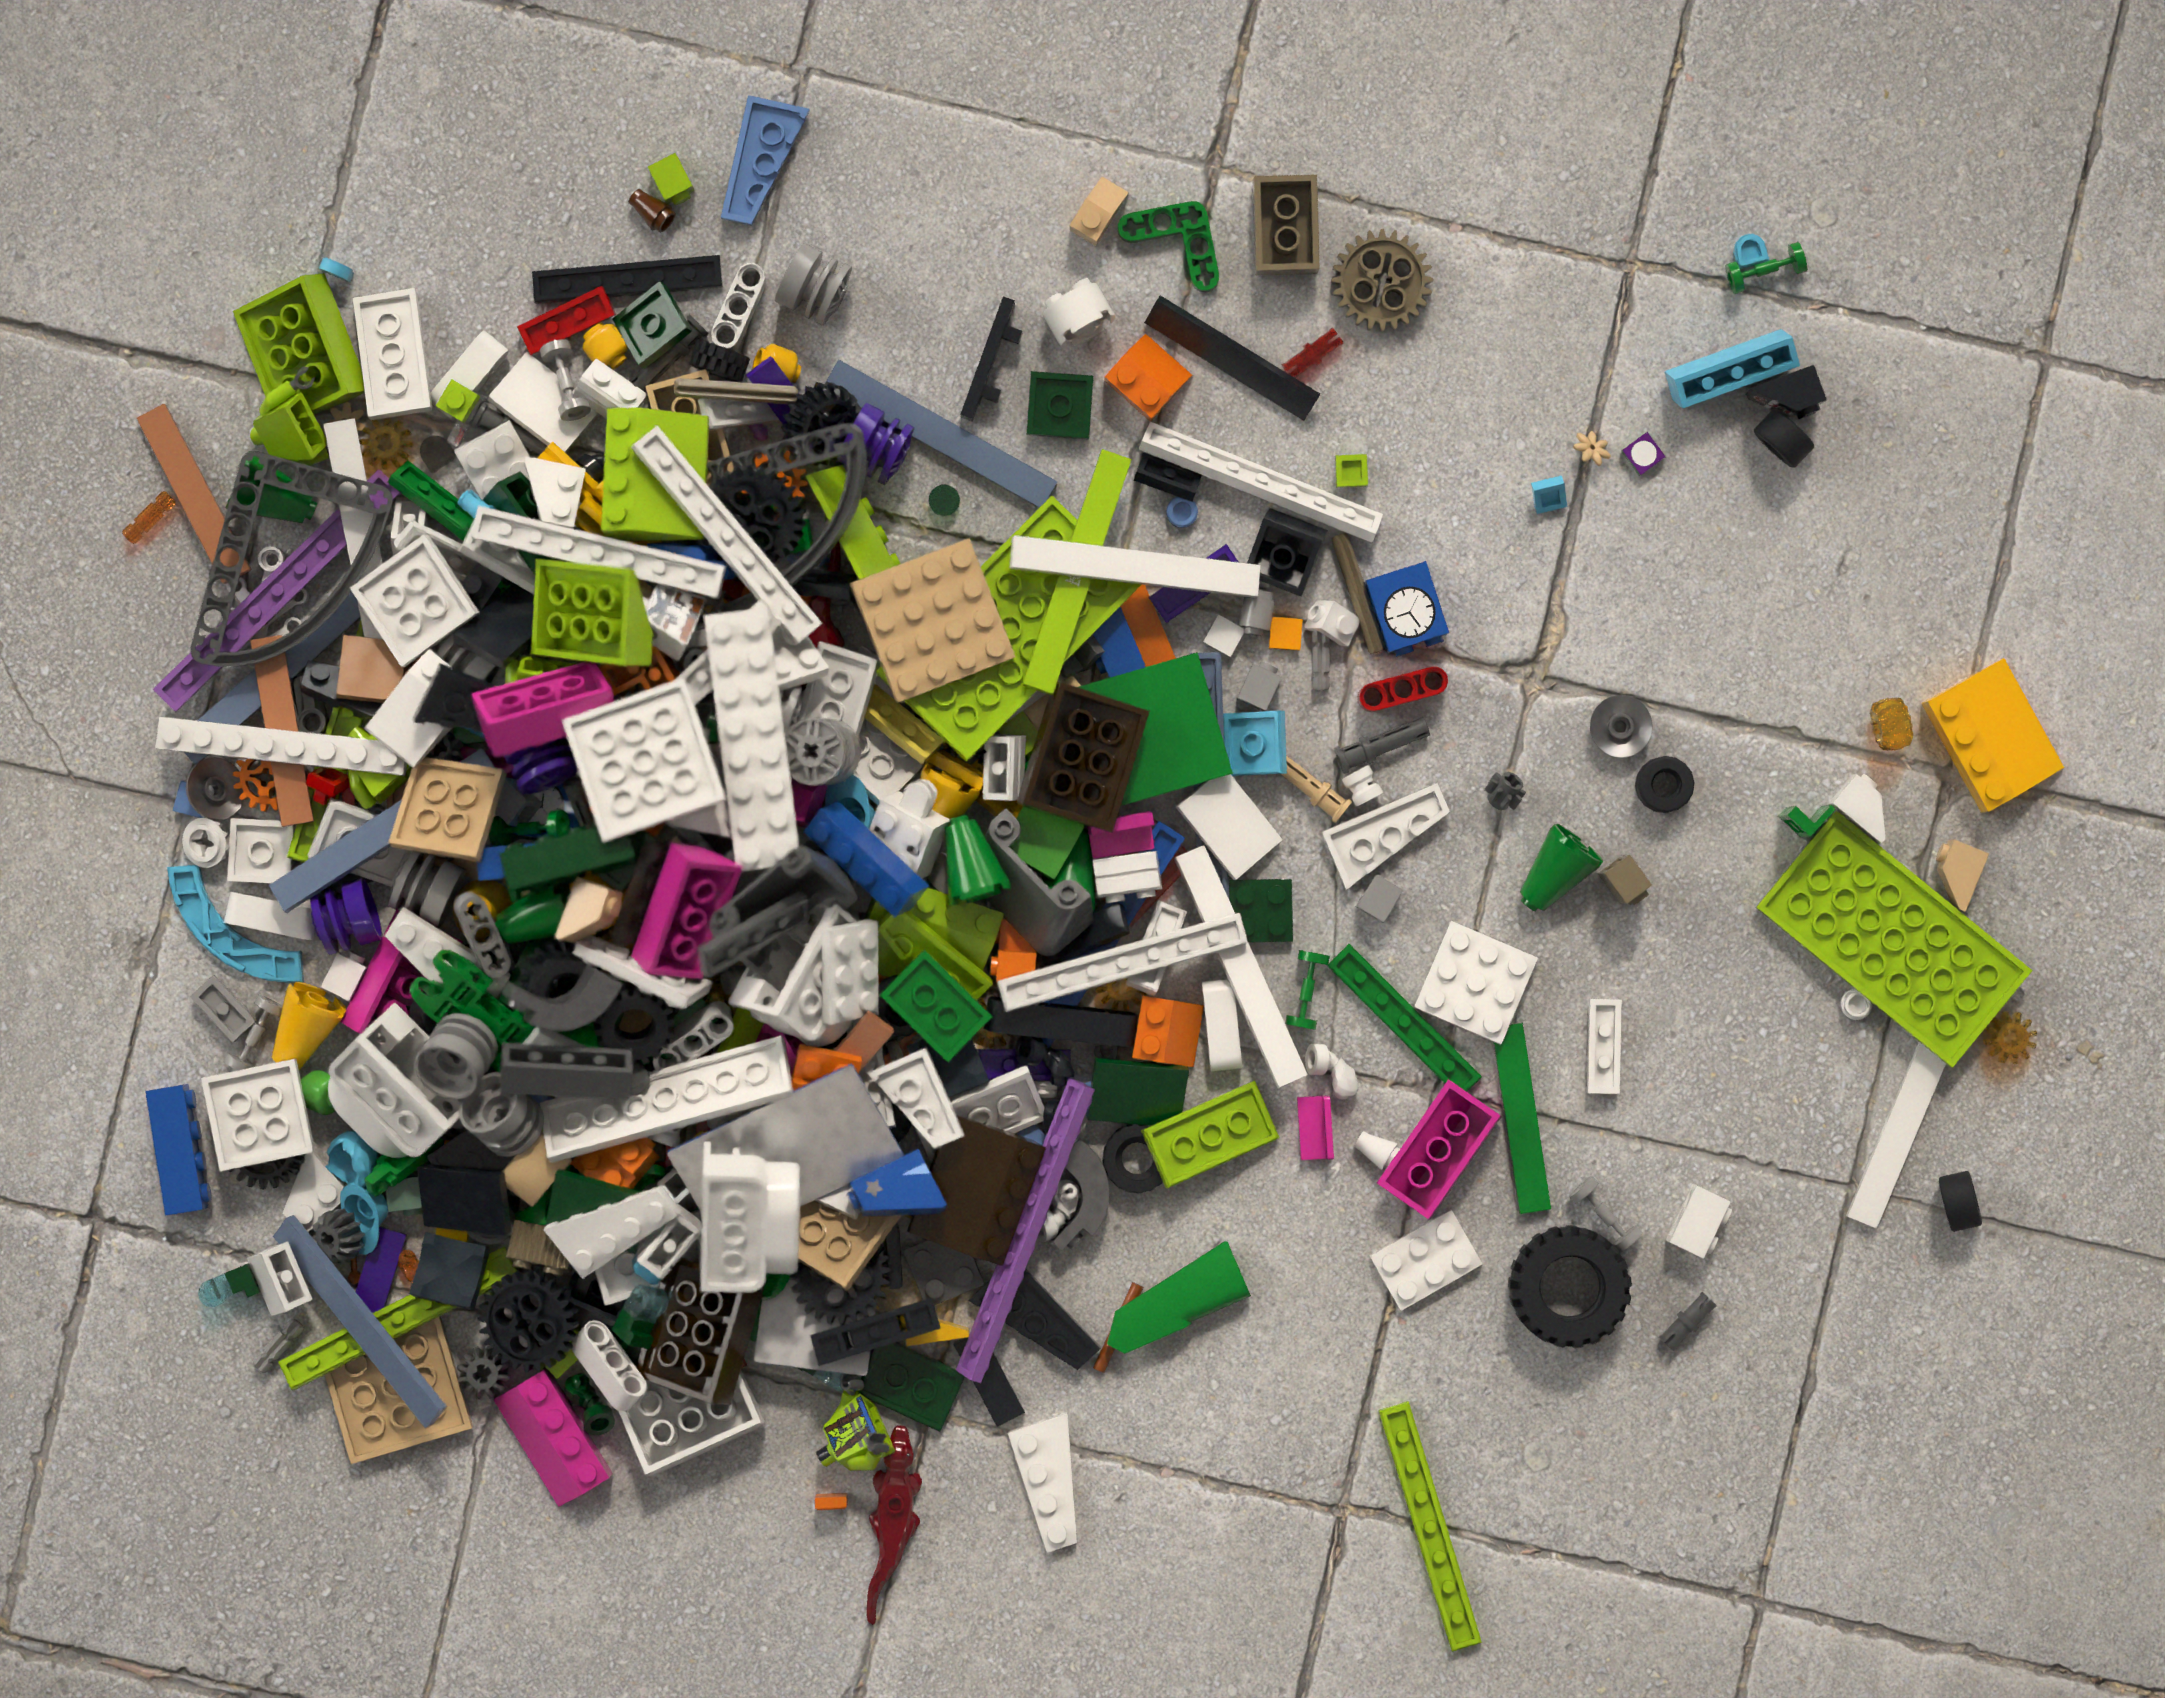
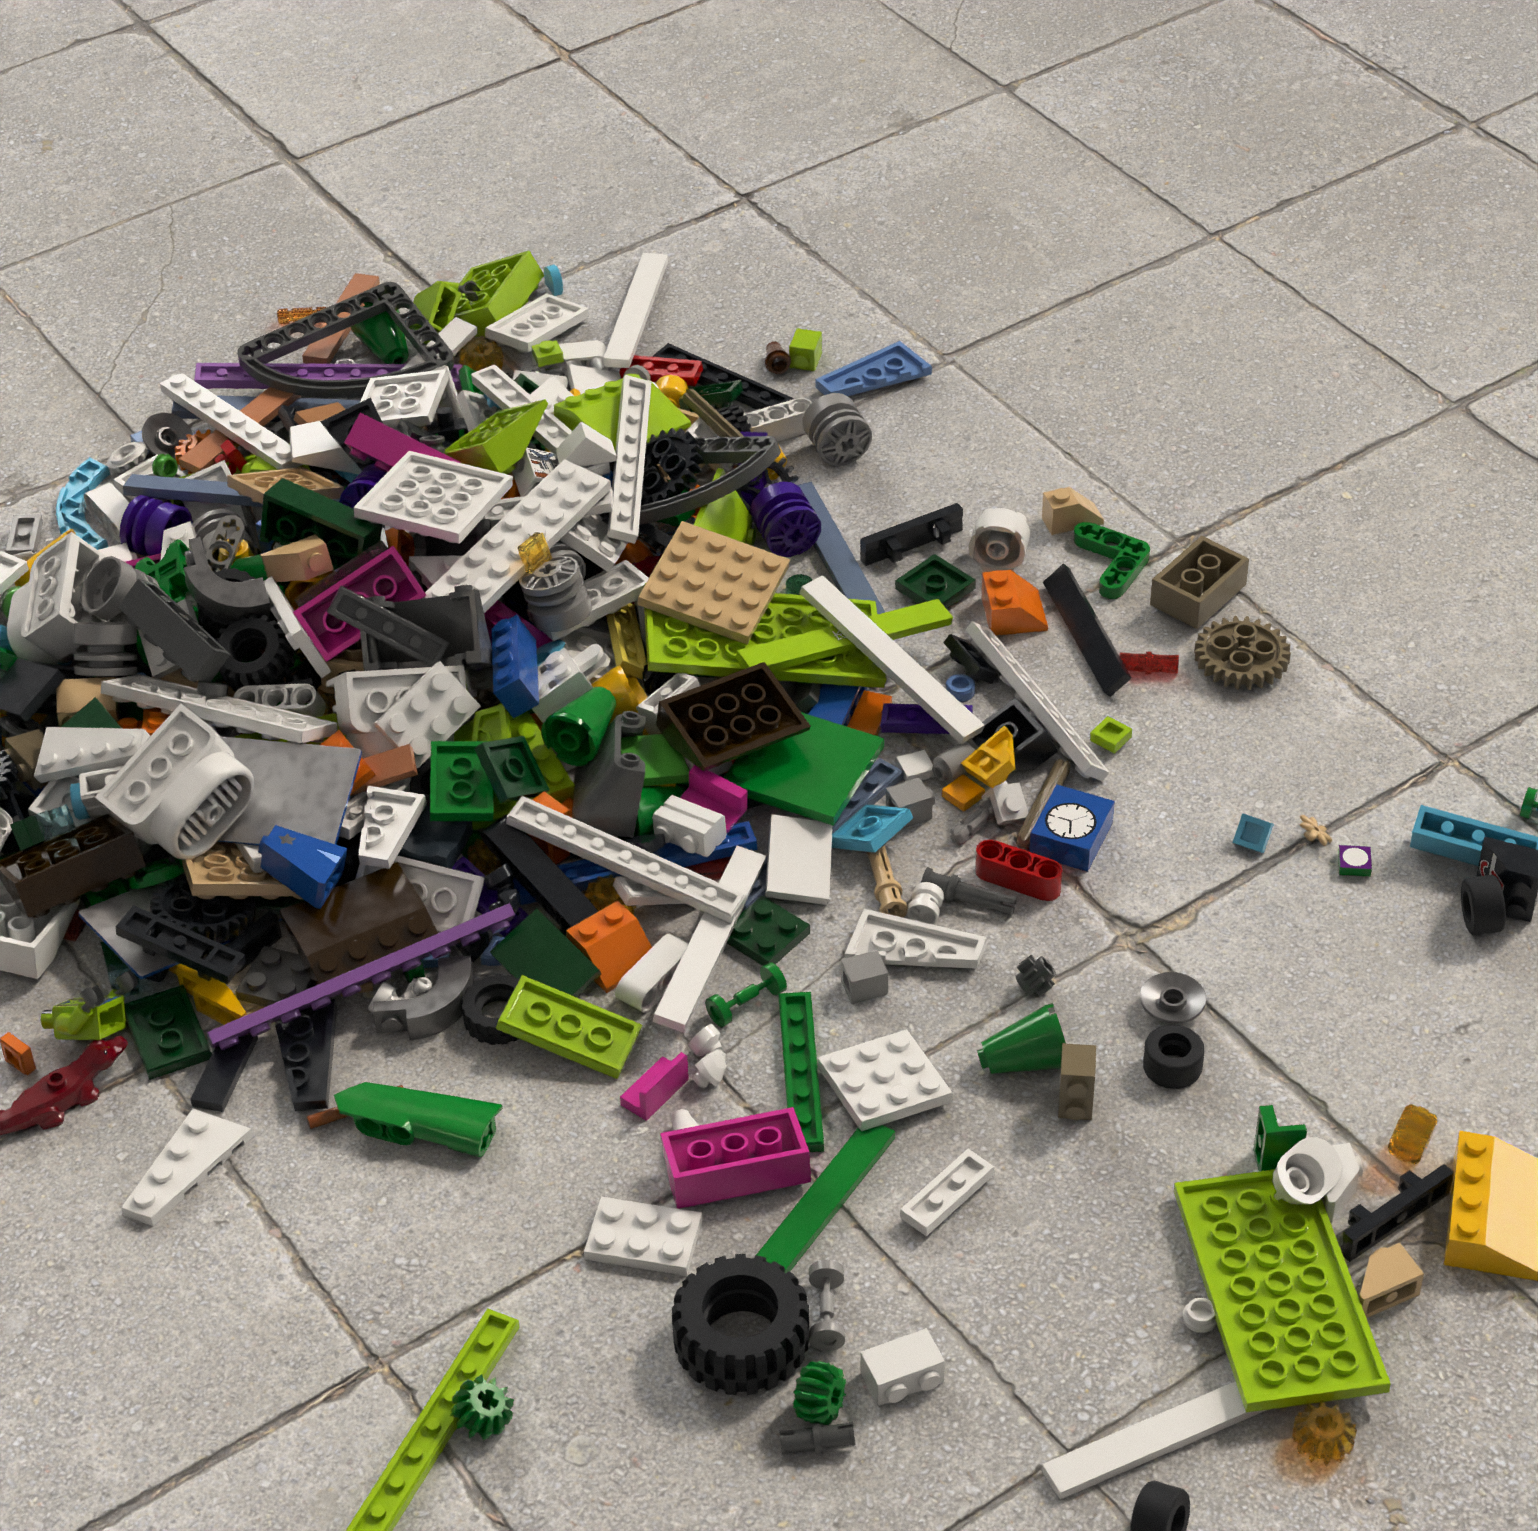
camera: 40 degrees right, 45 degrees down
(266, 836) = (164, 466): none -> bright green plate
(461, 252) = (635, 310): none -> white tile
(525, 647) = (434, 442): none -> dark grey bush
(695, 573) = (586, 447): none -> white slope
(787, 747) = (534, 552): none -> clear yellow tile
(967, 964) = (511, 769): none -> dark green plate
(1301, 601) = (993, 759): none -> yellow wing
(1453, 1504) = (482, 1407): none -> green gear
(1667, 1294) = (819, 1393): none -> green gear
(1855, 839) = (1307, 1171): none -> white piece
(1919, 829) = (1415, 1198): none -> black hinge

